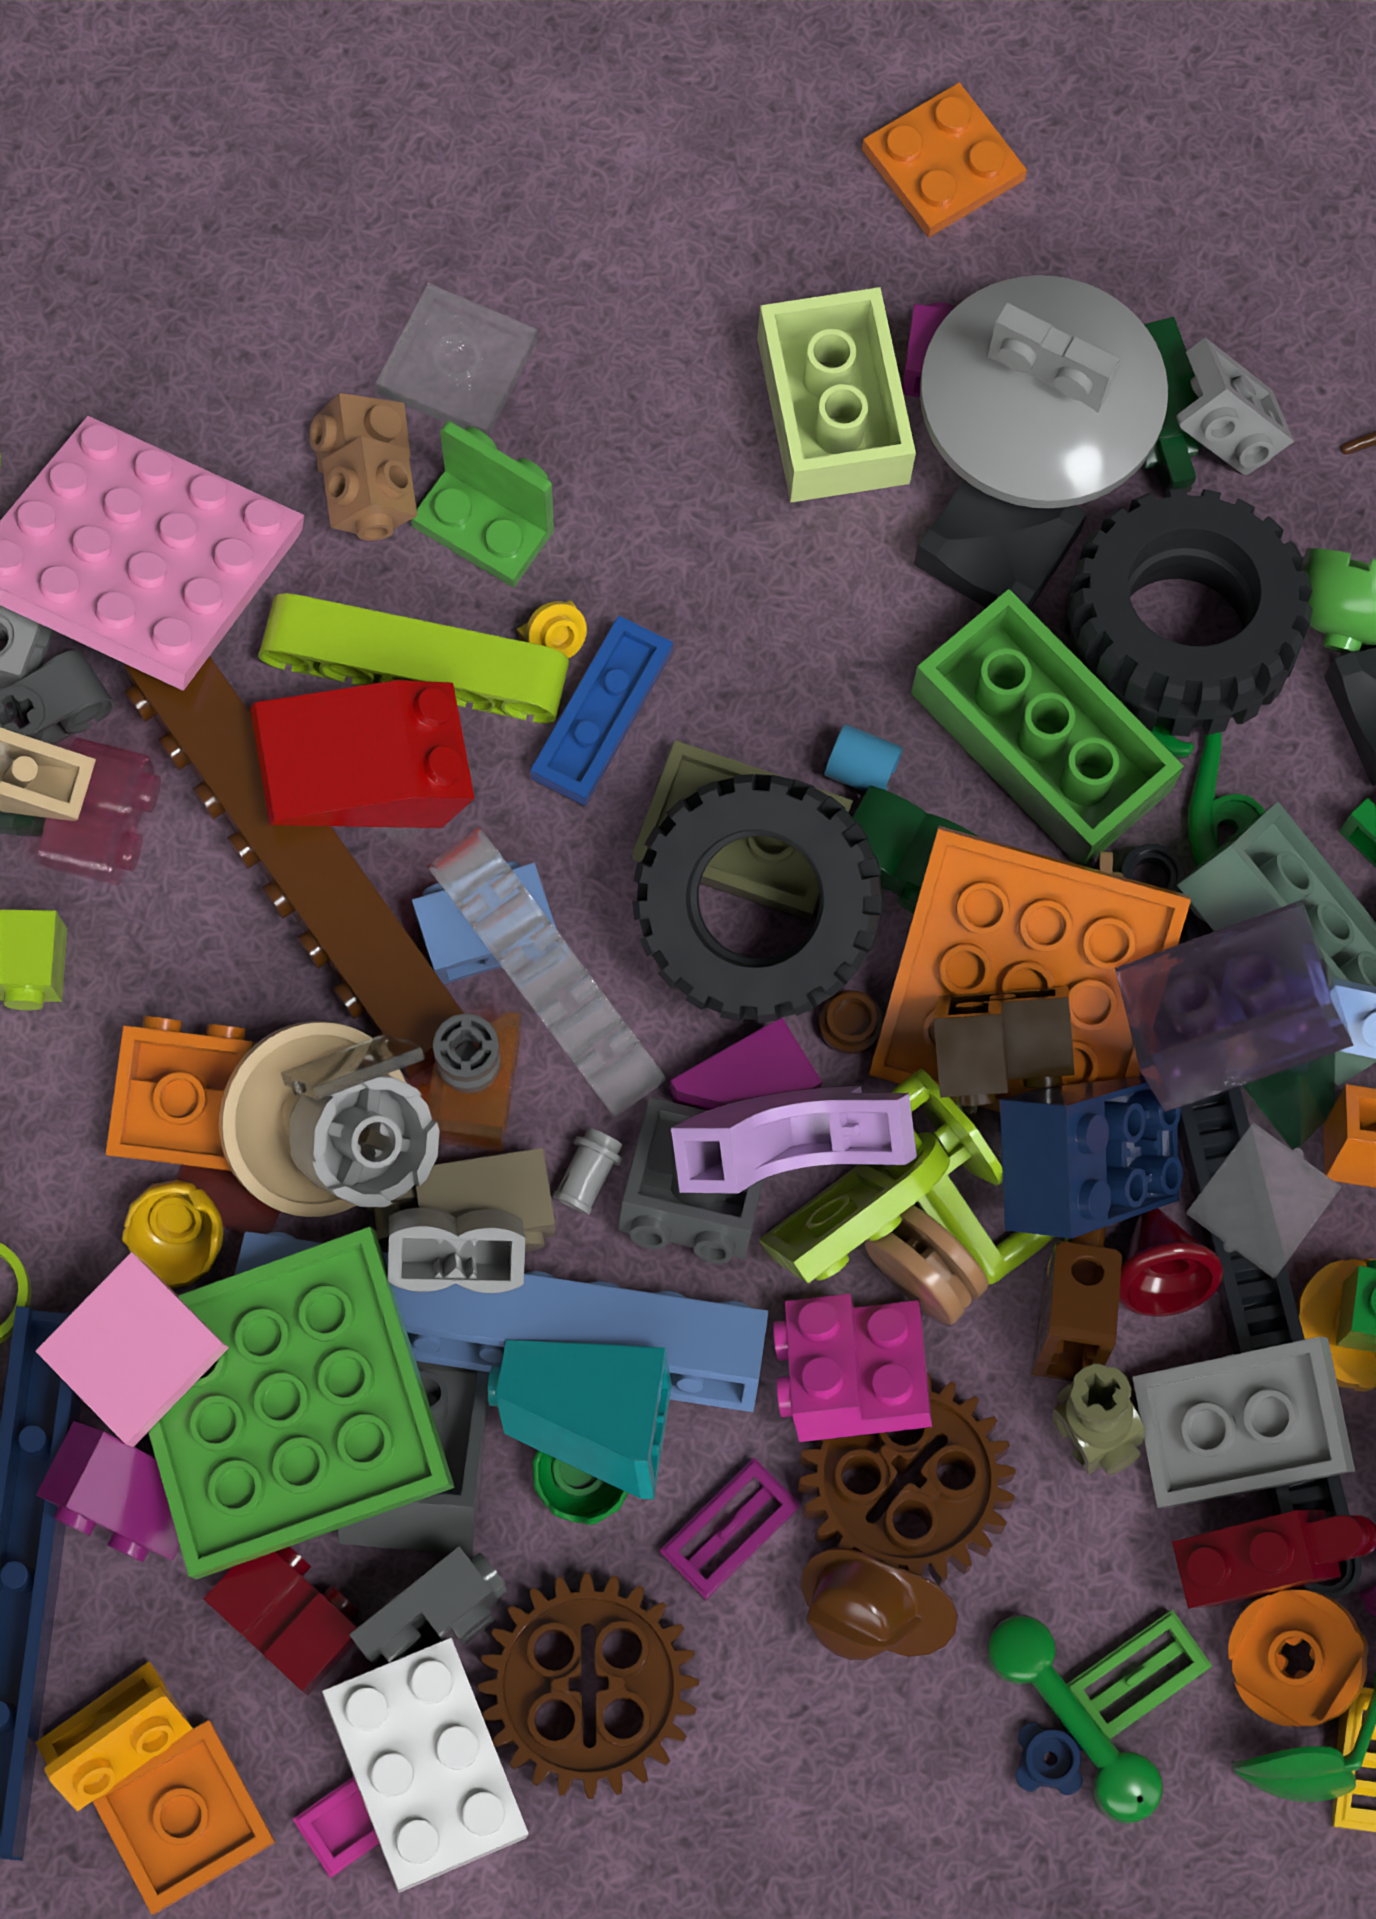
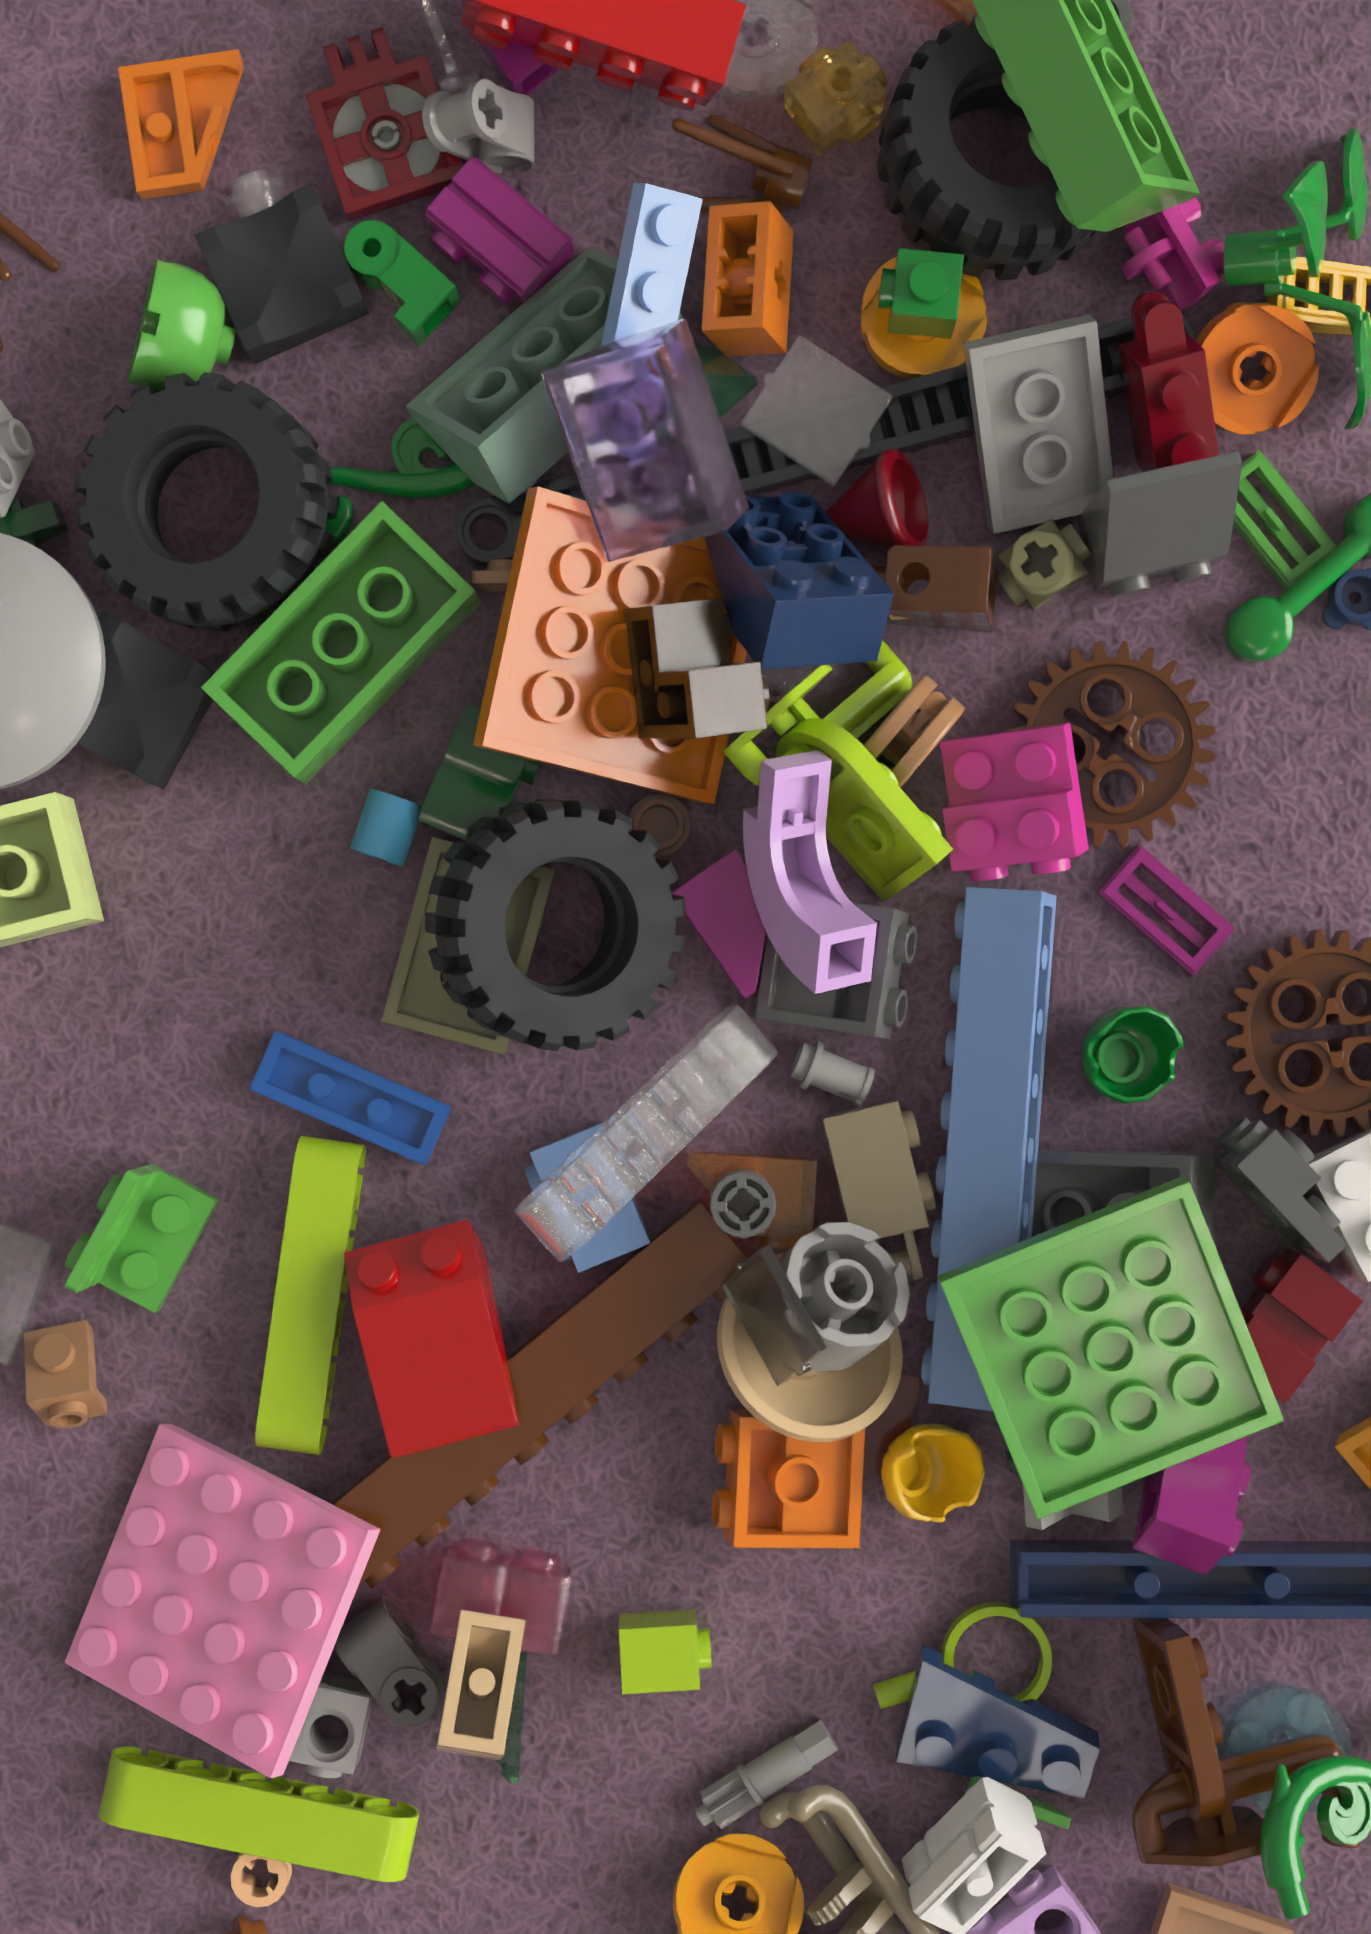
camera: 90 degrees left, 15 degrees up
(132, 1349) = (1072, 1501): bright pink tile -> none
(369, 488) = (130, 1359): medium nougat brick -> none
(474, 1250) = (946, 1197): light grey brick -> none
(557, 627) = (267, 1152): yellow plate -> none
(588, 1406) = (1084, 1052): teal slope -> none
(874, 1607) = (1241, 772): reddish brown piece -> none
(1133, 1533) = (1161, 524): none -> dark grey slope

